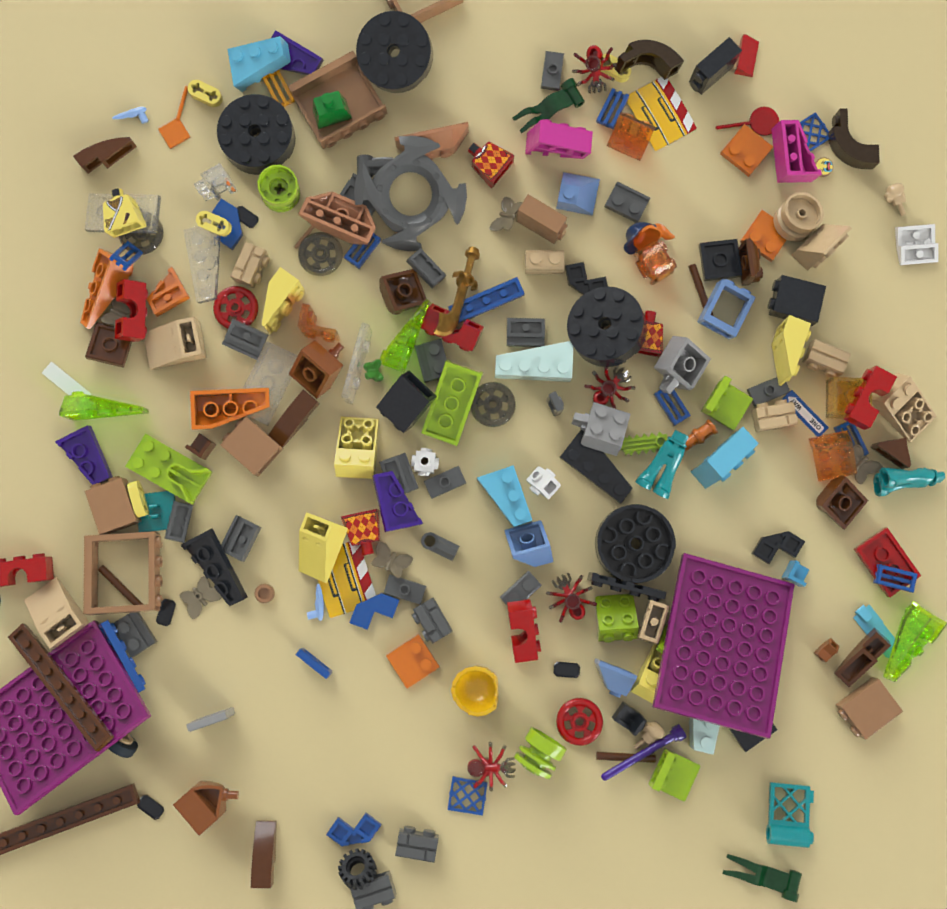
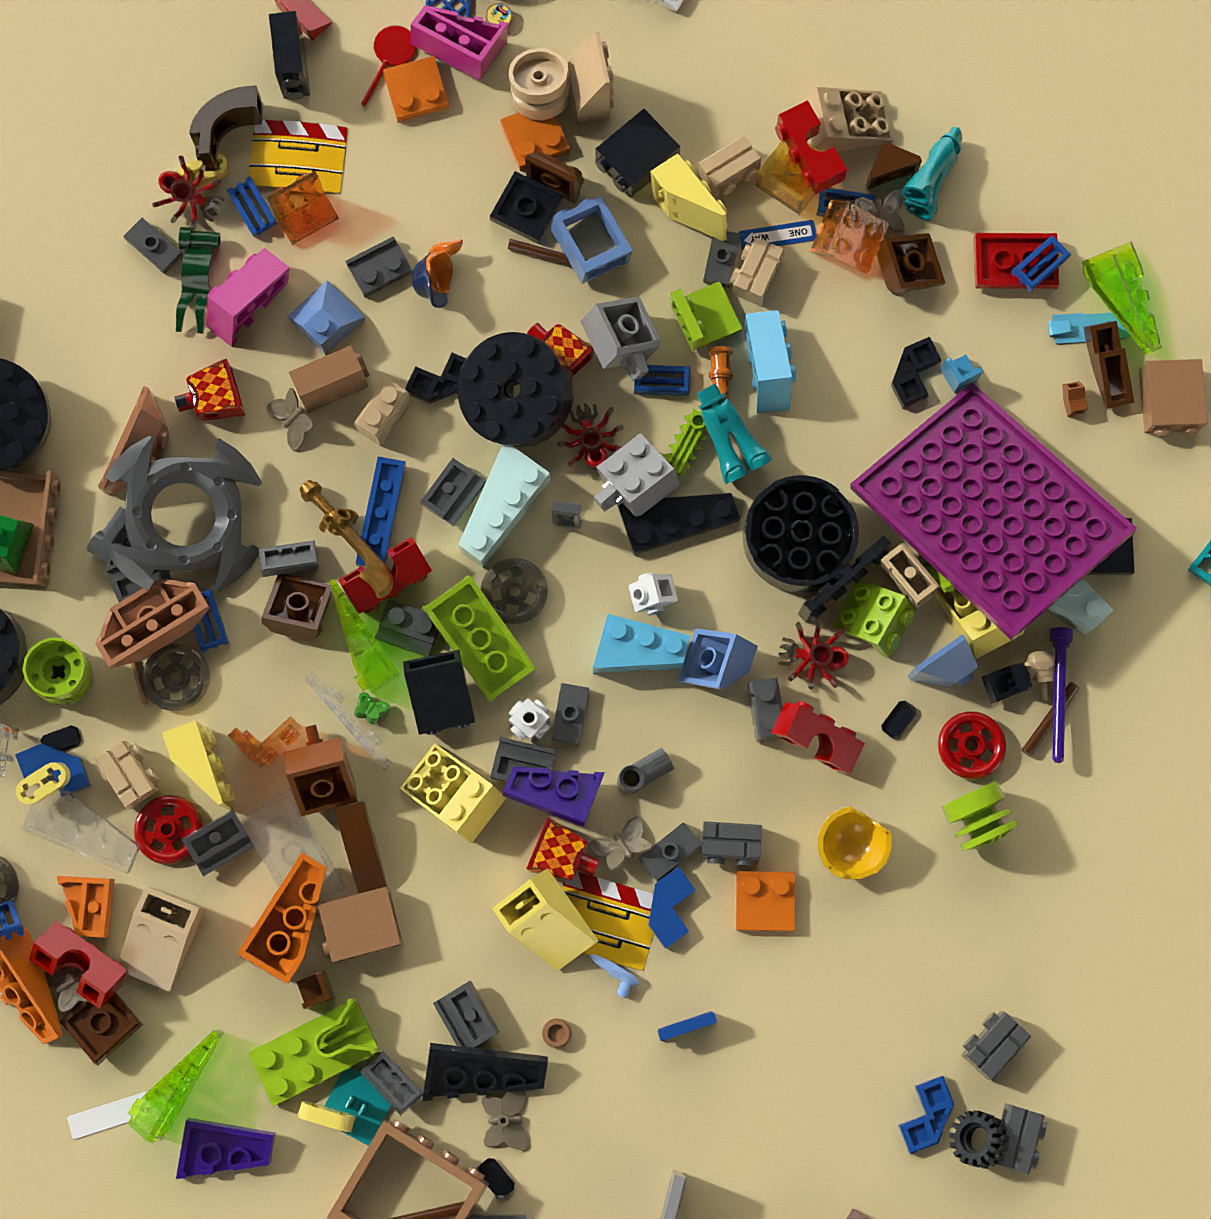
camera: 55 degrees left, 5 degrees down
(111, 505) = (312, 1156): medium nougat brick -> none
(465, 810) = (960, 960): blue window -> none
(487, 767) = (956, 894): animal -> none
(655, 262) = (476, 282): clear orange brick -> none
(674, 775) = (1108, 674): lime bracket -> none

